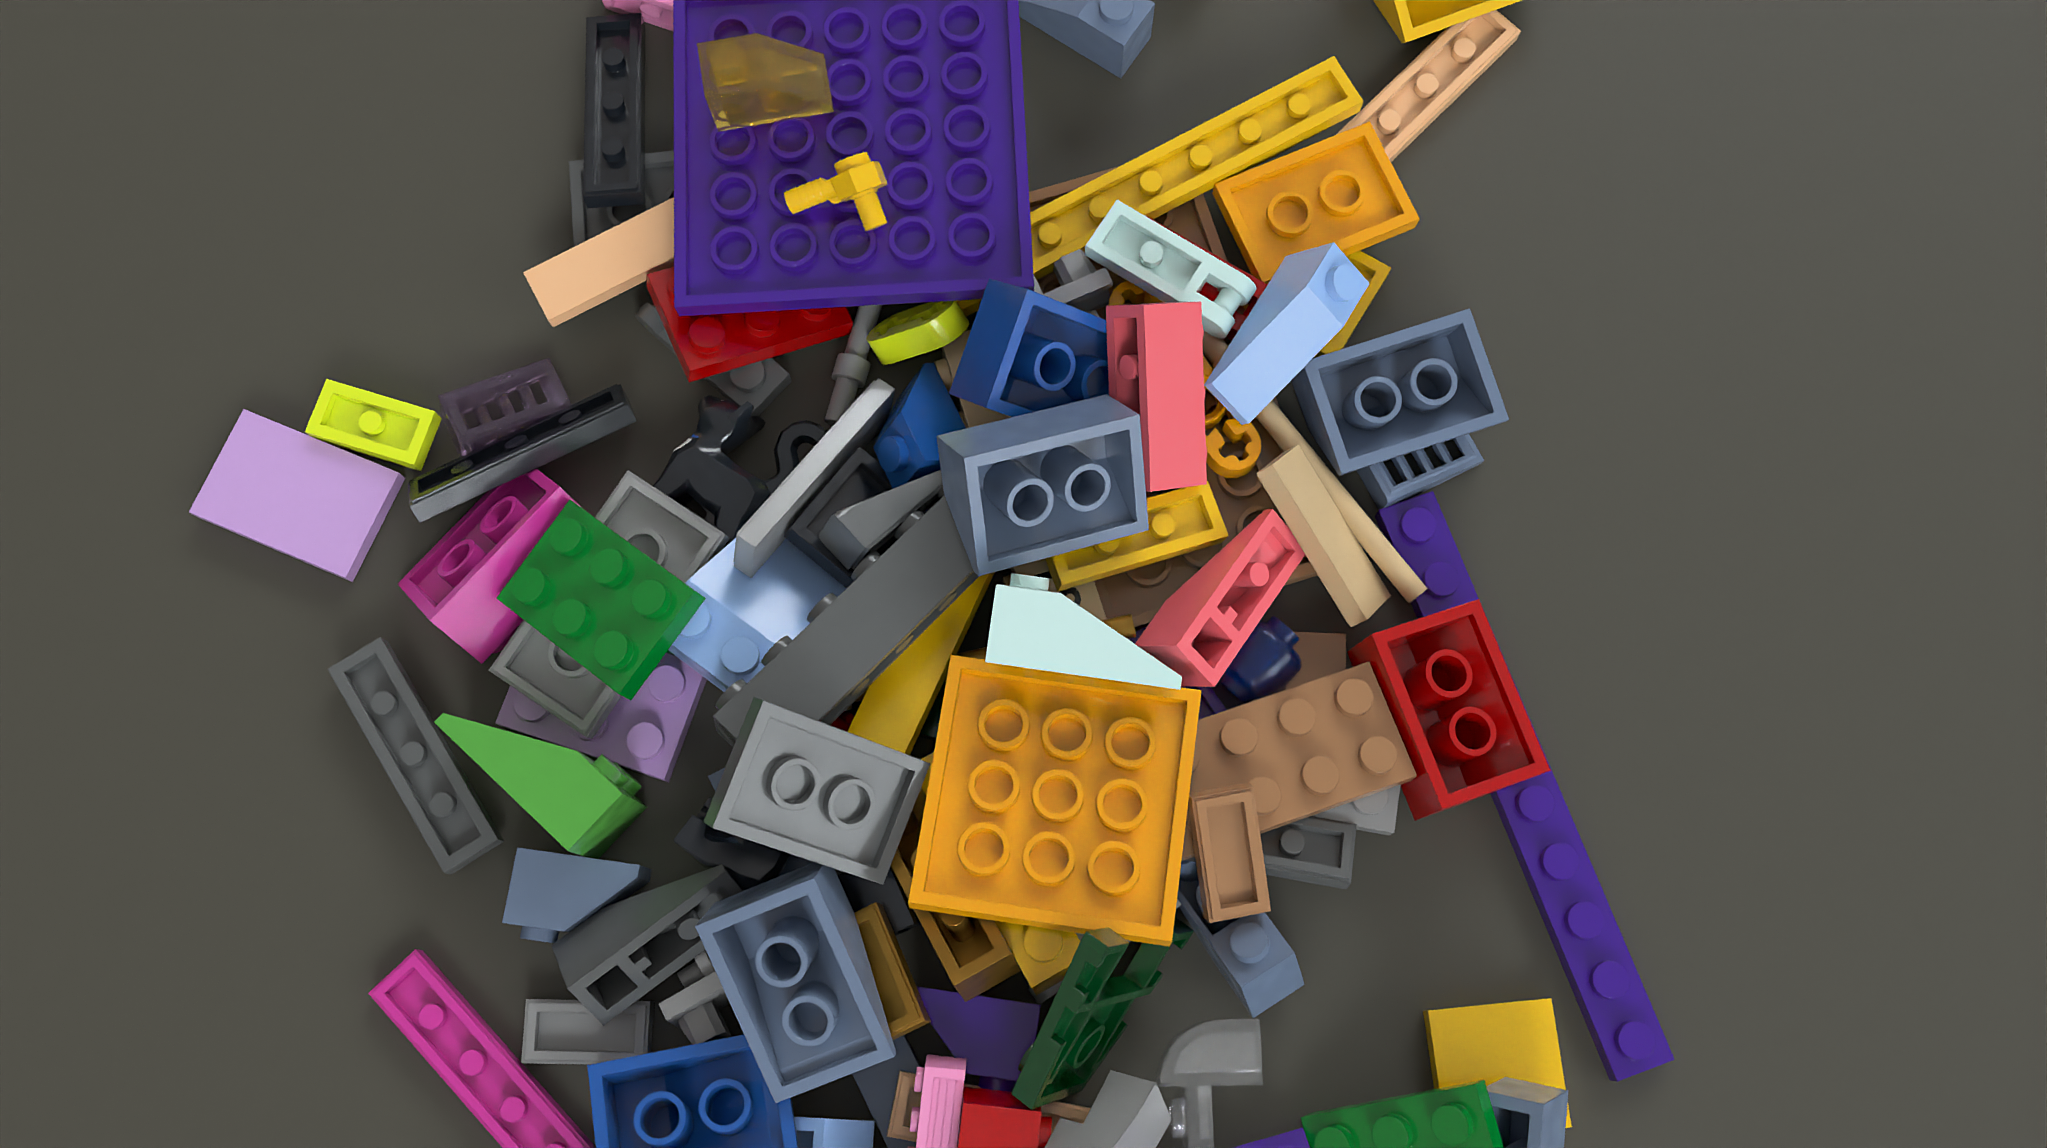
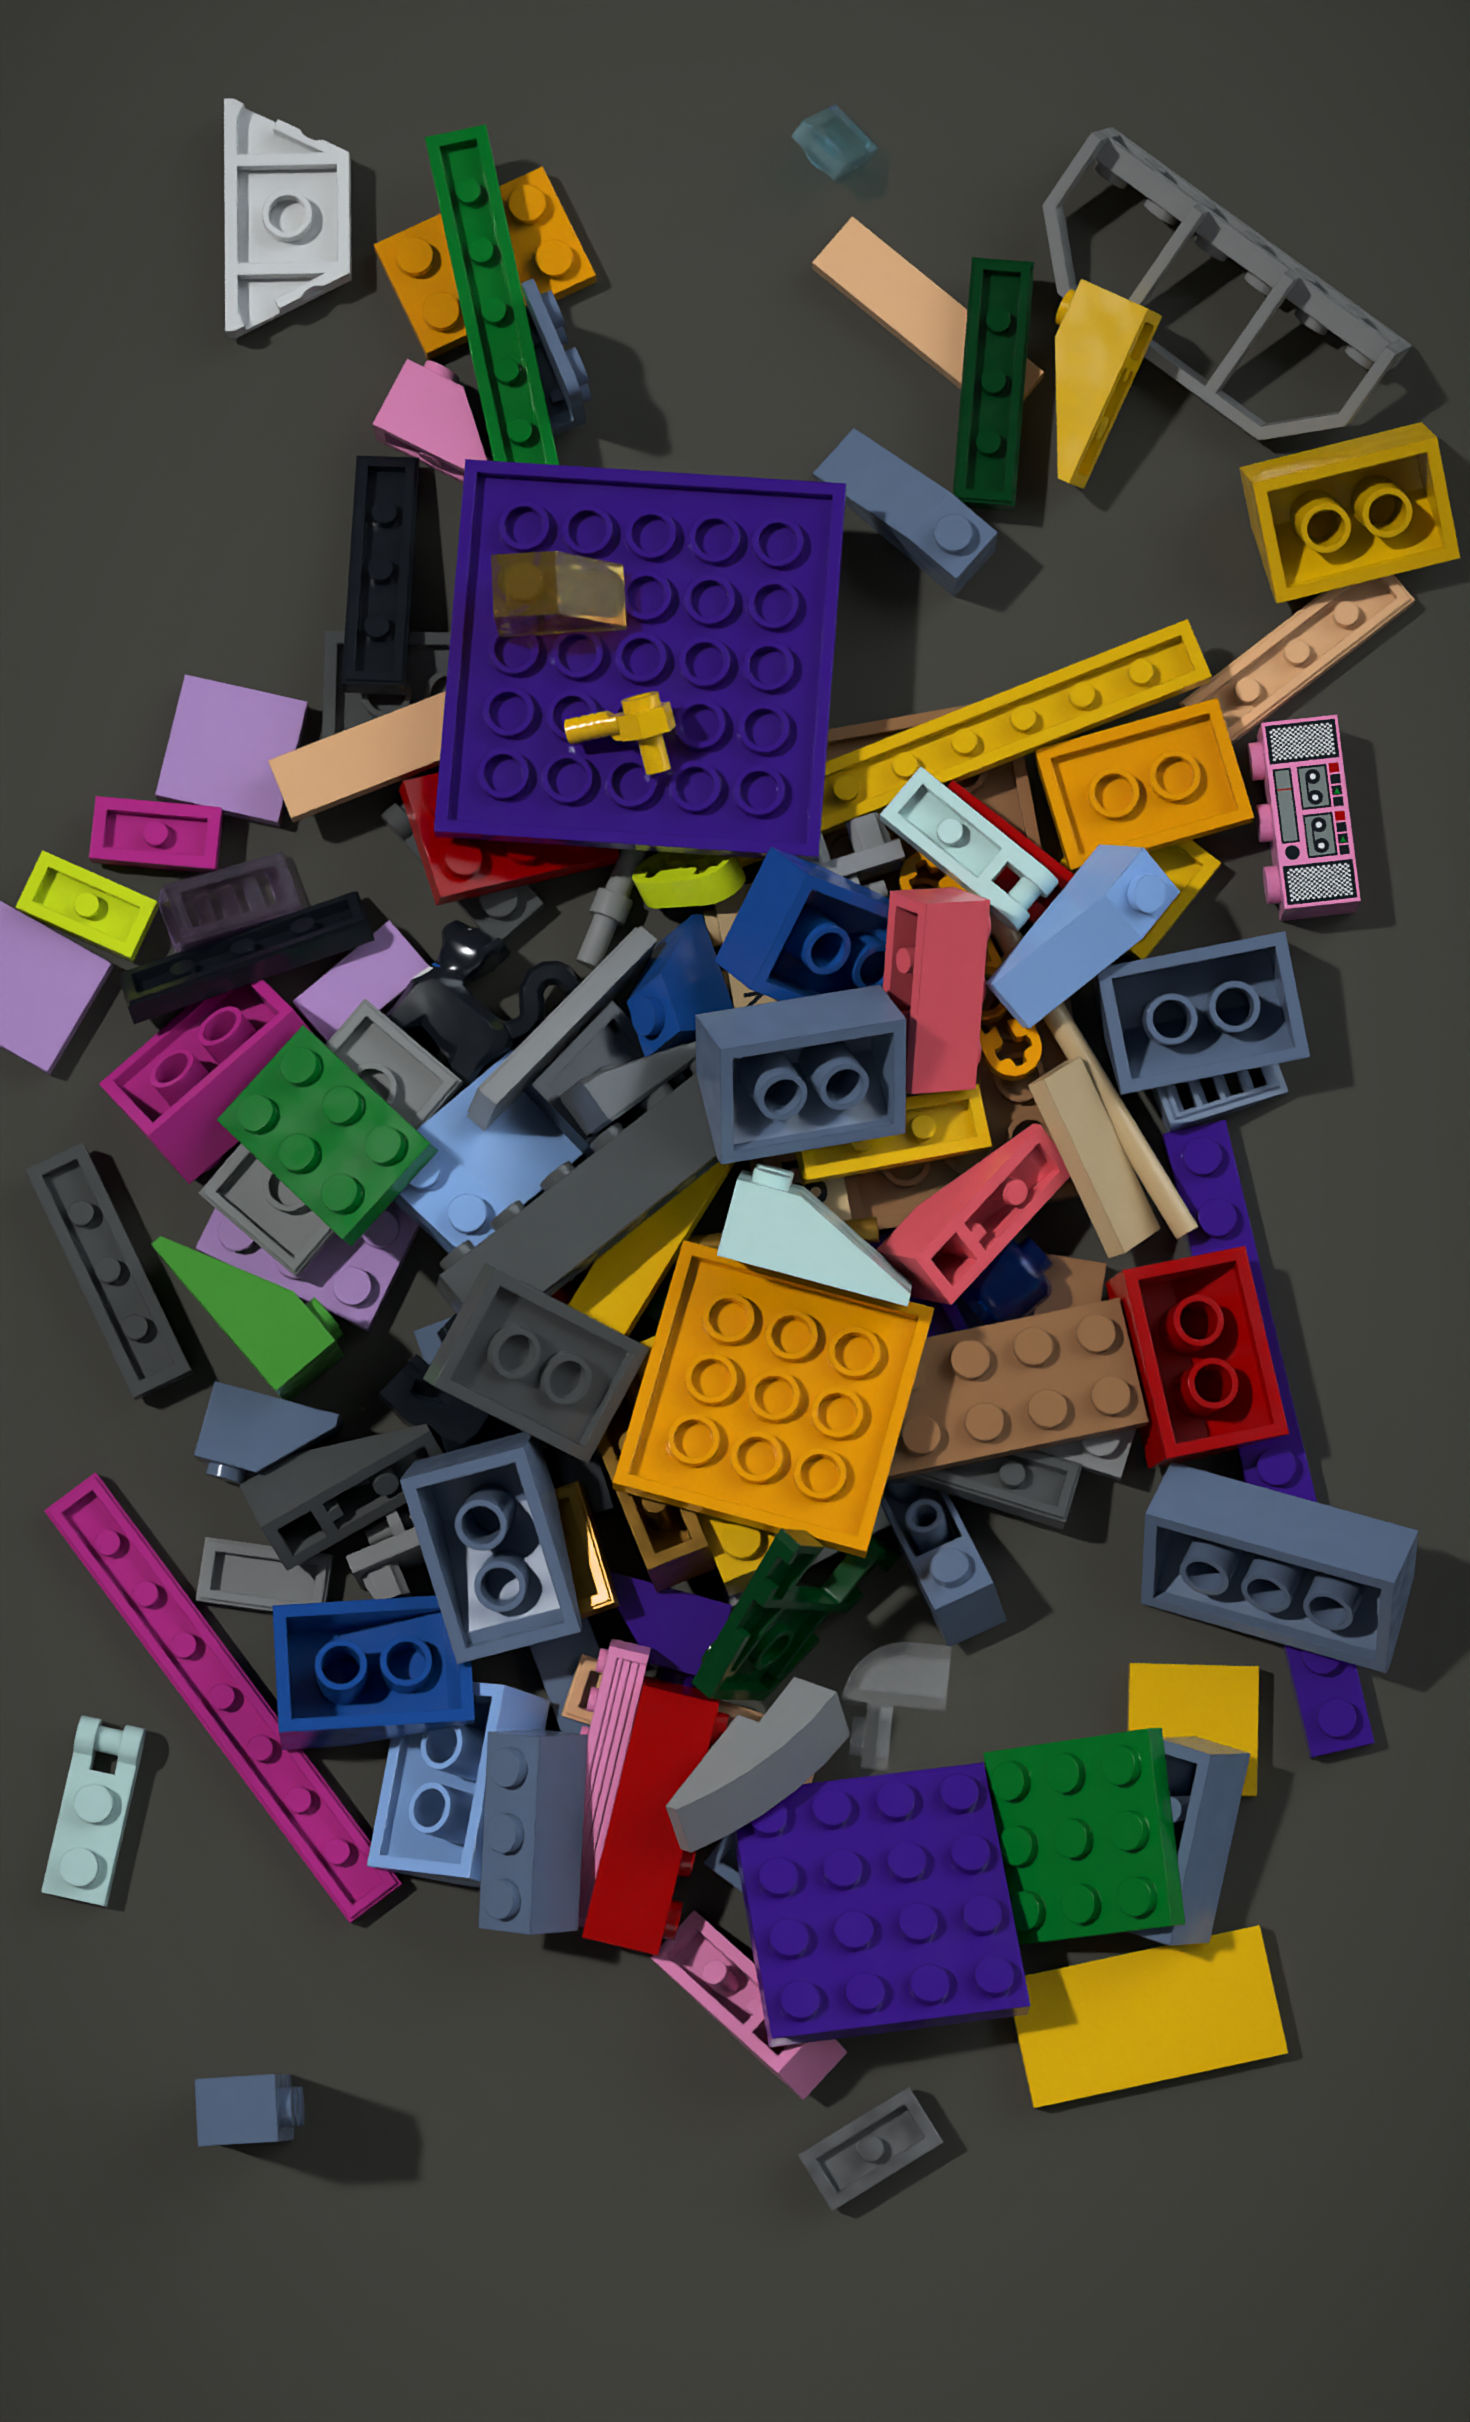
camera: 10 degrees right, 5 degrees up
(431, 354) = (156, 834): none -> dark pink plate
(483, 279) = (224, 747): none -> lavender tile
(640, 449) = (370, 972): none -> lavender tile
(1228, 852) = (940, 1474): medium nougat tile -> none
(1462, 220) = (1305, 818): none -> brick
(1565, 901) = (1277, 1566): none -> sand blue slope

